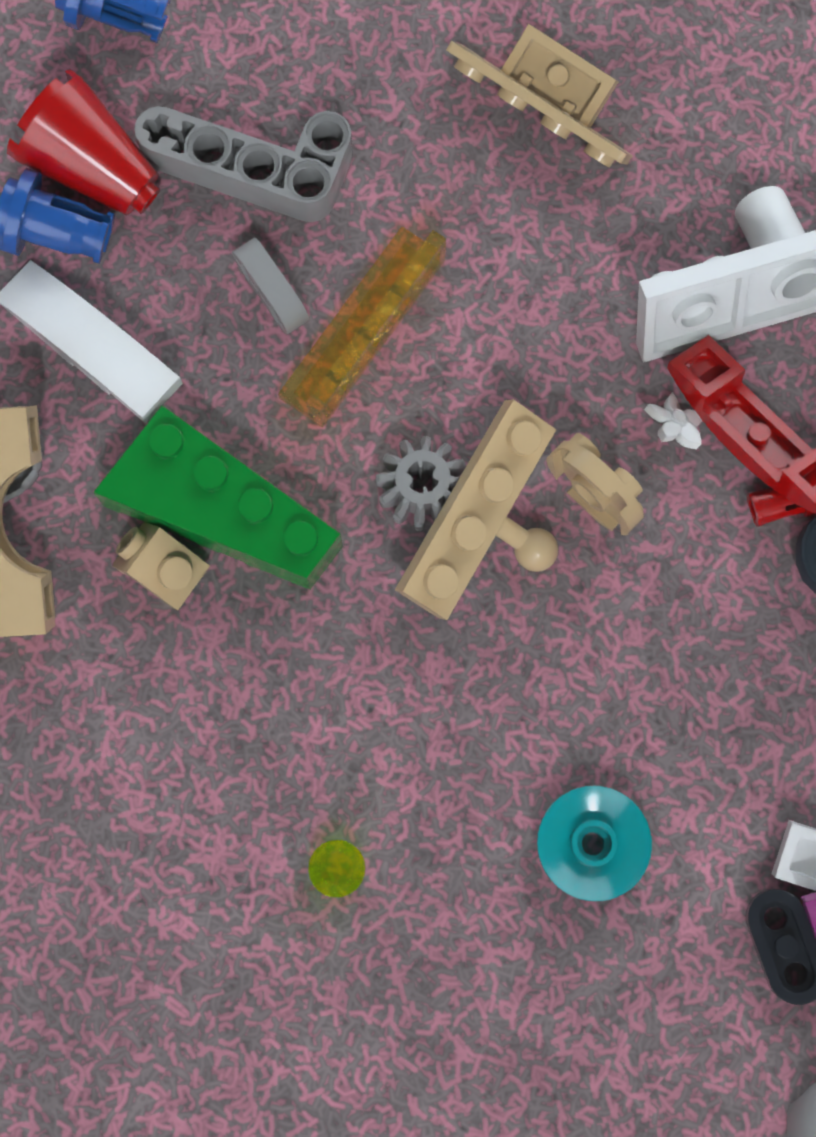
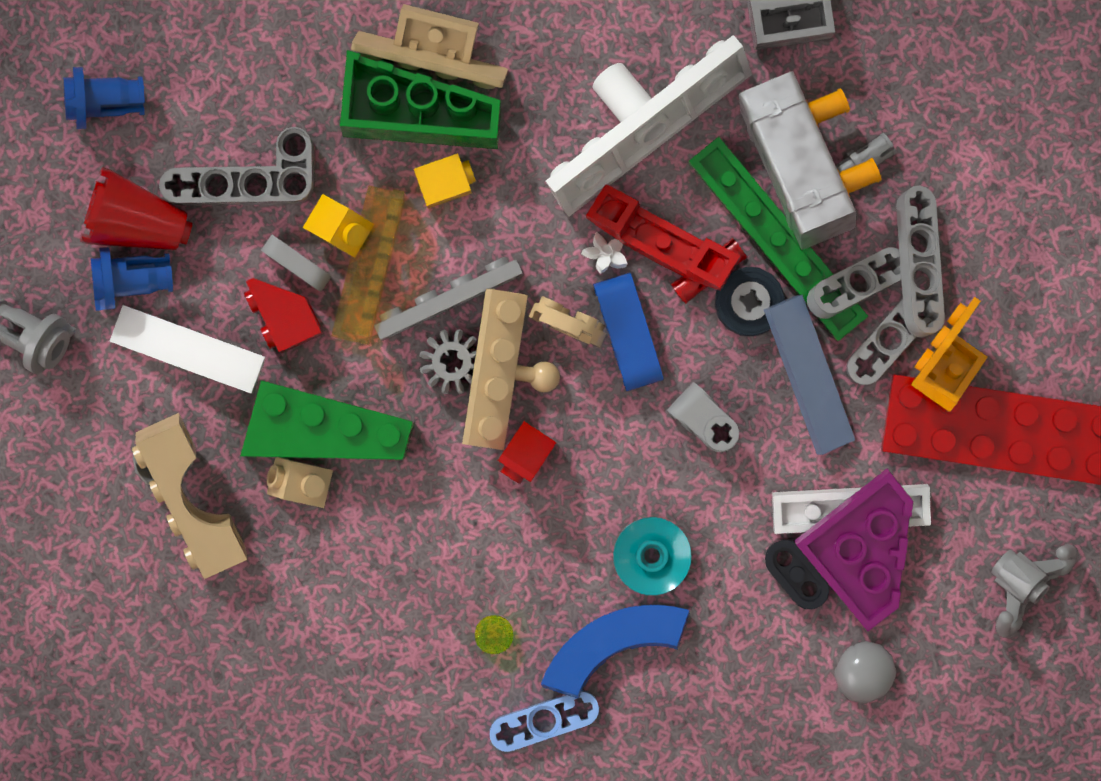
camera: 20 degrees left, 10 degrees up
(231, 343) = (286, 315): none -> red slope
(343, 255) = (338, 225): none -> yellow brick
(343, 1035) = (519, 738): none -> light blue beam
(425, 402) = (432, 304): none -> light grey plate
(473, 636) = (525, 453): none -> red slope
(492, 932) = (608, 636): none -> blue tile
(498, 149) = (413, 108): none -> green wedge
(502, 253) = (444, 180): none -> yellow brick
(672, 533) = (628, 331): none -> blue beam
(728, 680) = (699, 414): none -> light grey piece

